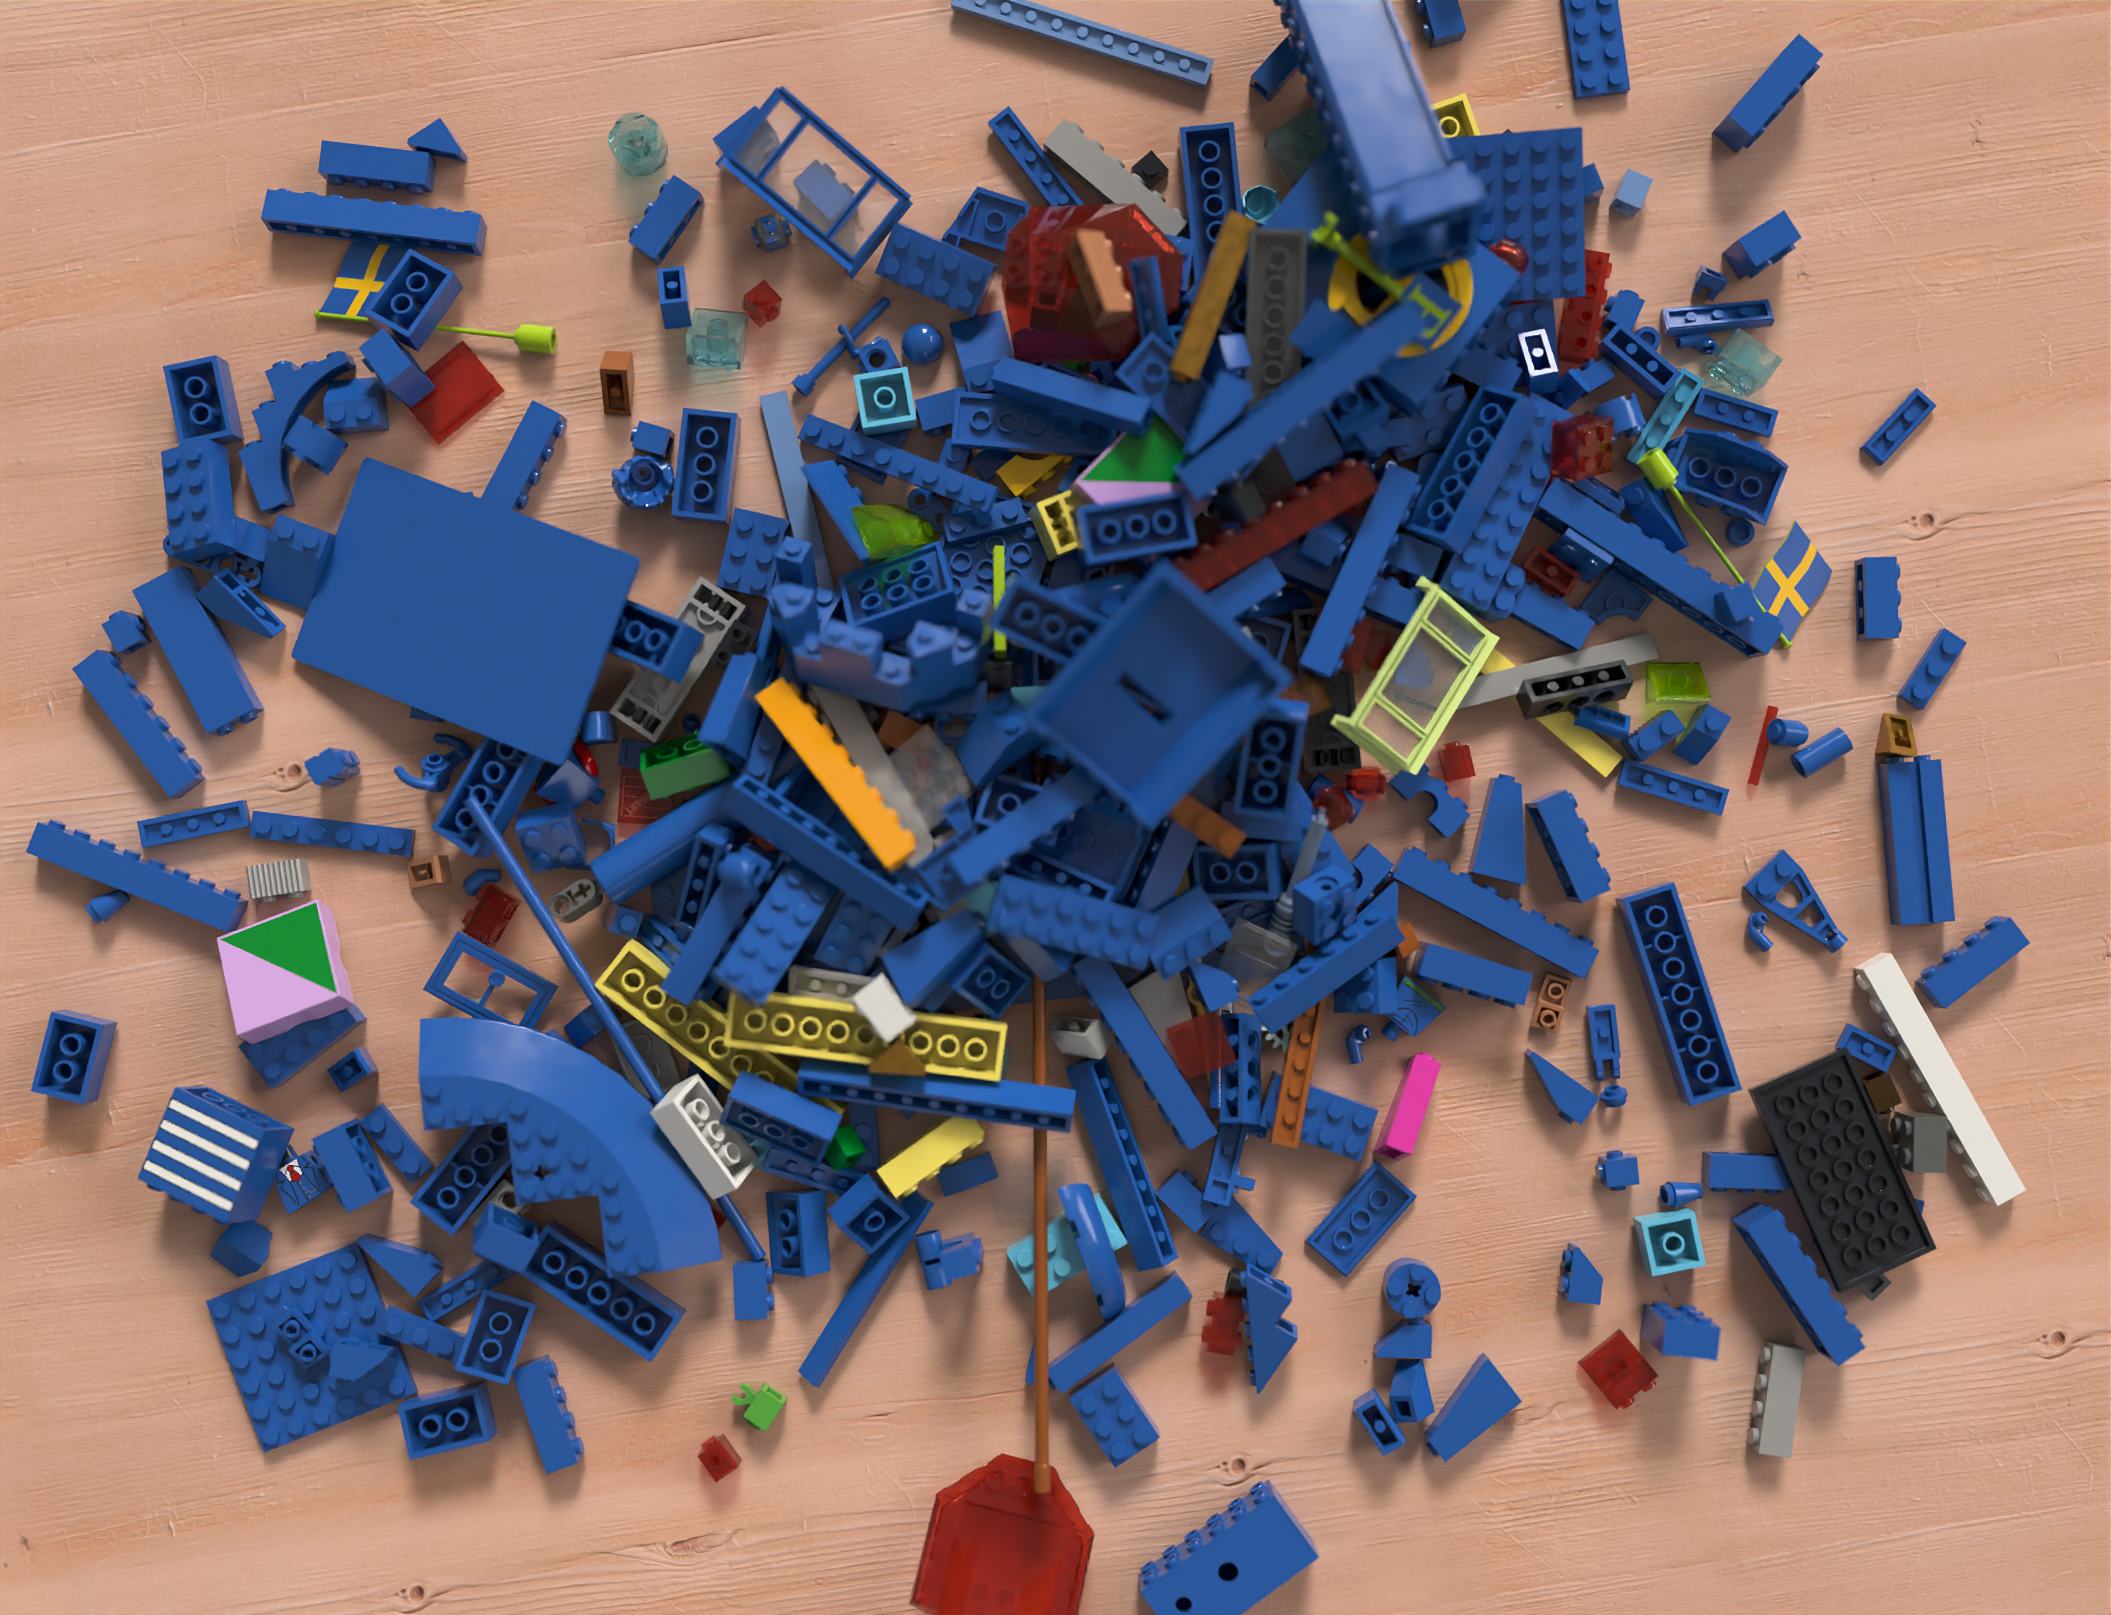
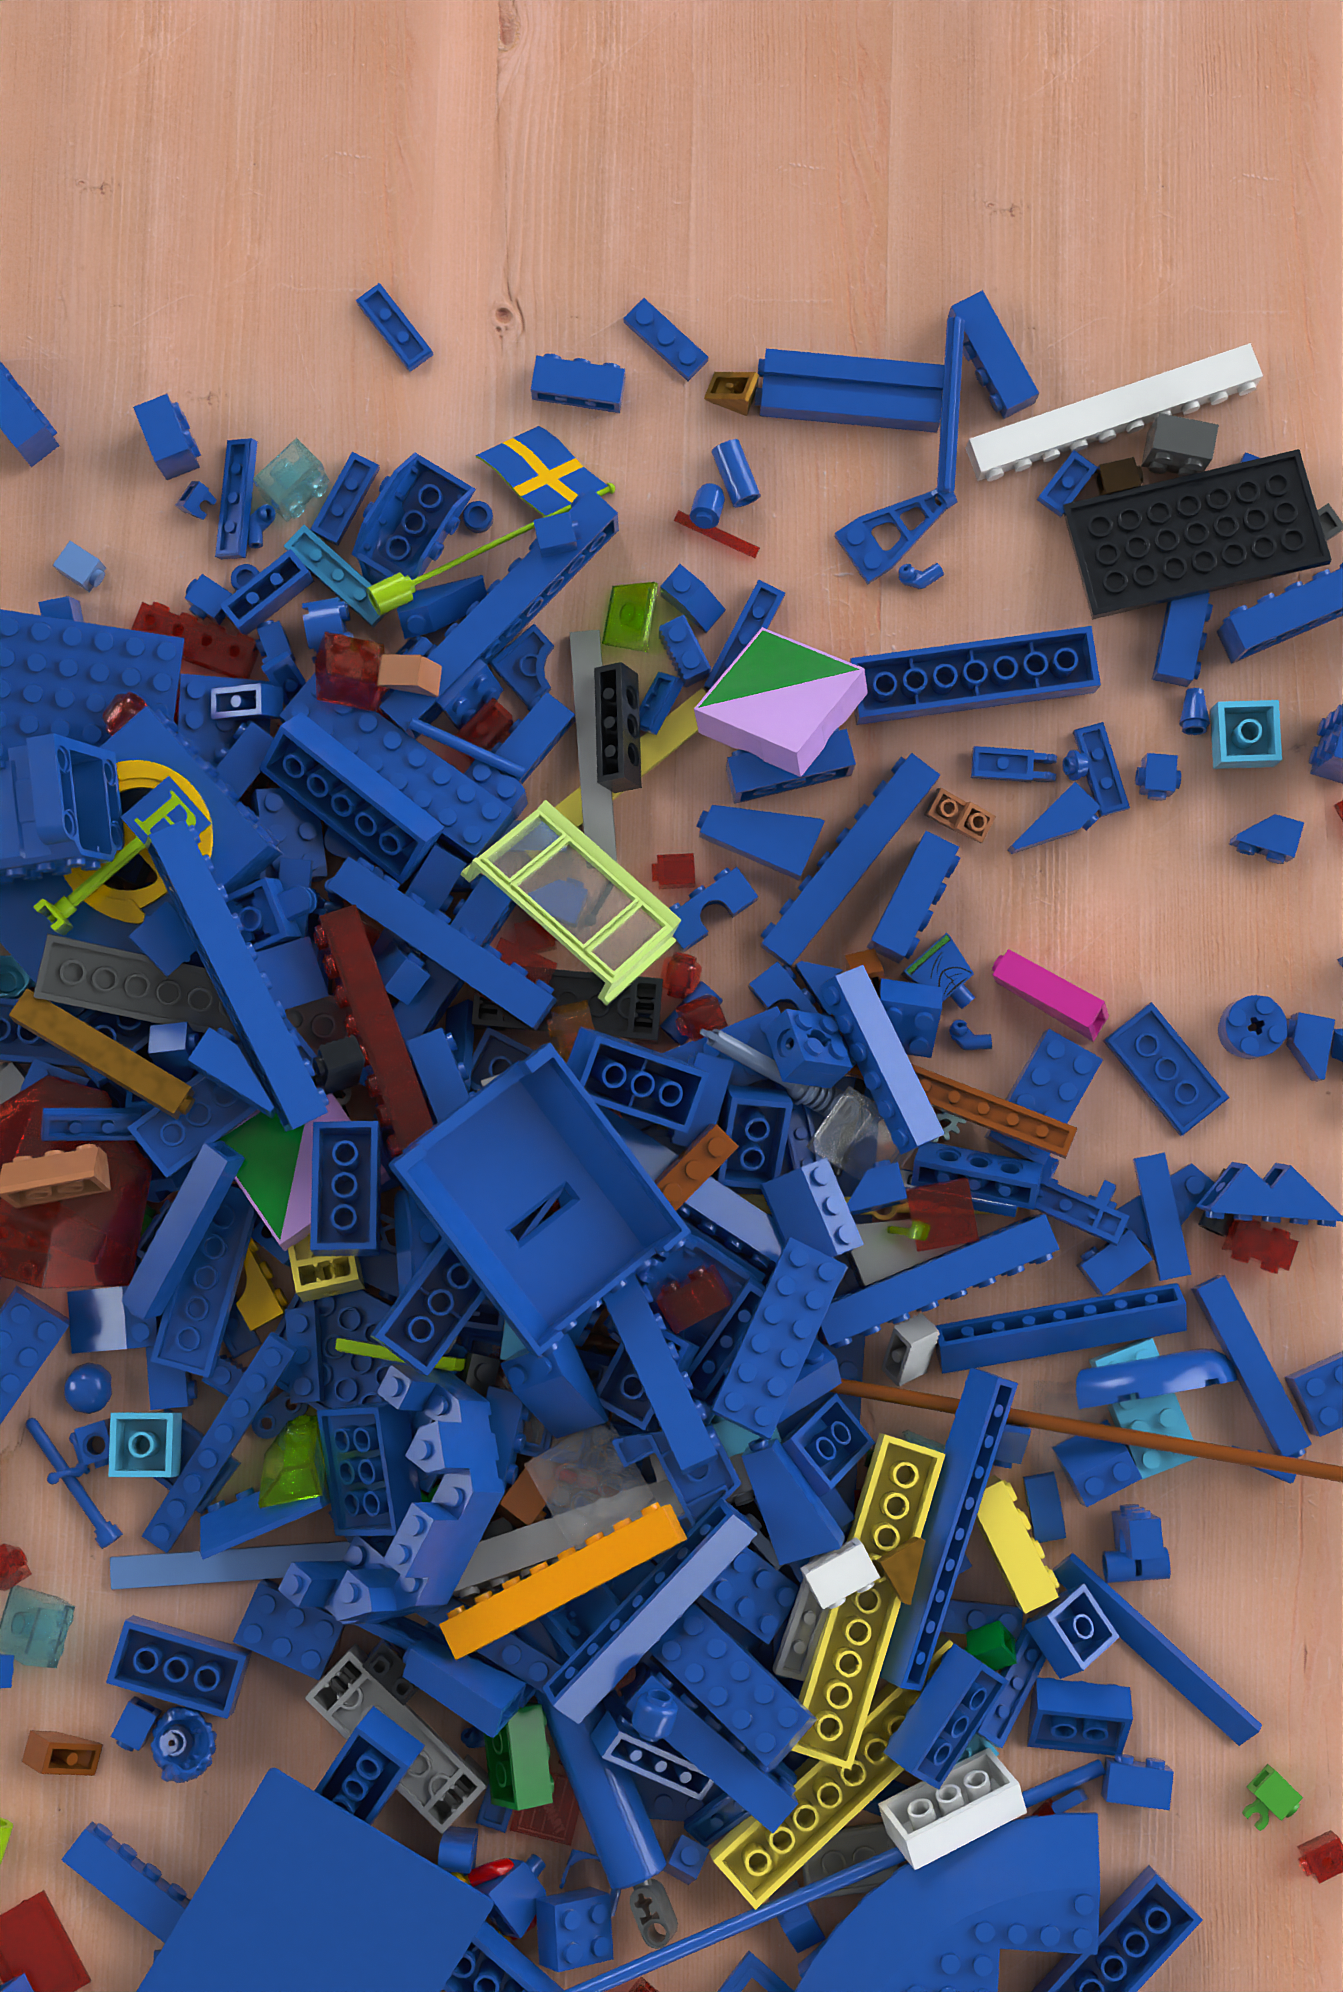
camera: 80 degrees left, 5 degrees down
(727, 1235) = (1069, 1801): none -> blue tile
(1009, 1212) = (1096, 1467): none -> blue slope
(1014, 1136) = (1012, 1445): none -> blue slope
(1092, 843) = (693, 1298): none -> clear red brick
(1183, 1025) = (917, 1231): none -> clear neon green hand
(1233, 1234) = (1162, 1216): none -> blue tile
(1533, 560) = (466, 747): none -> blue bar
(1590, 499) = (410, 674): none -> nougat slope
(1615, 1120) = (1102, 769): none -> blue tile
(1625, 827) = (781, 701): none -> lavender tile
(1919, 932) = (950, 405): none -> blue axle

